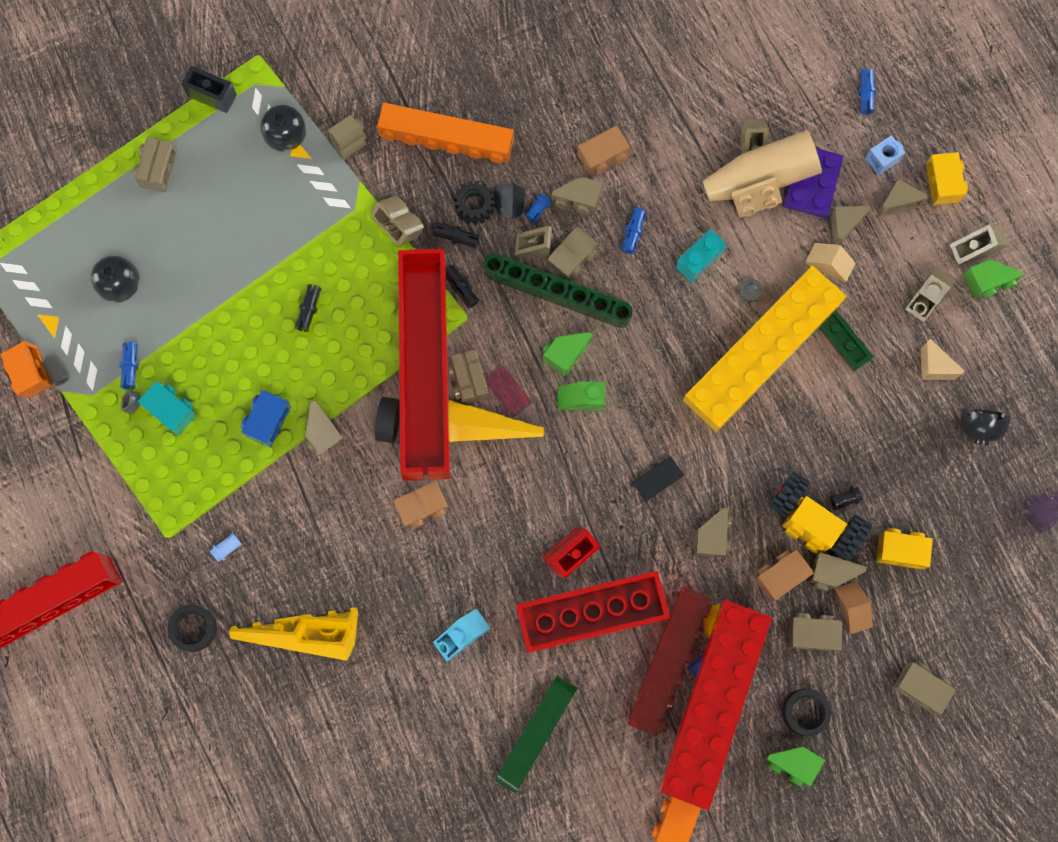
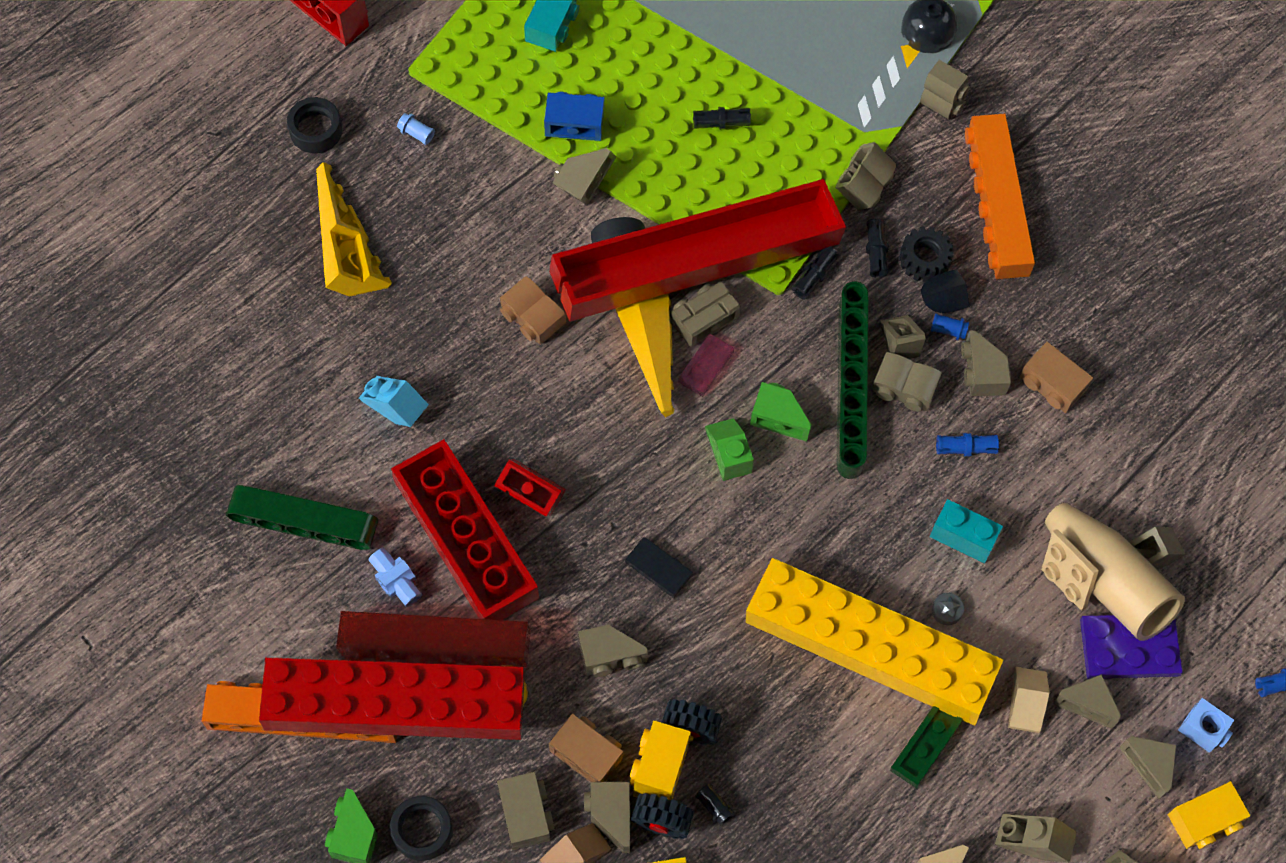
camera: 70 degrees right, 10 degrees down
(607, 675) = (395, 577): none -> light blue axle

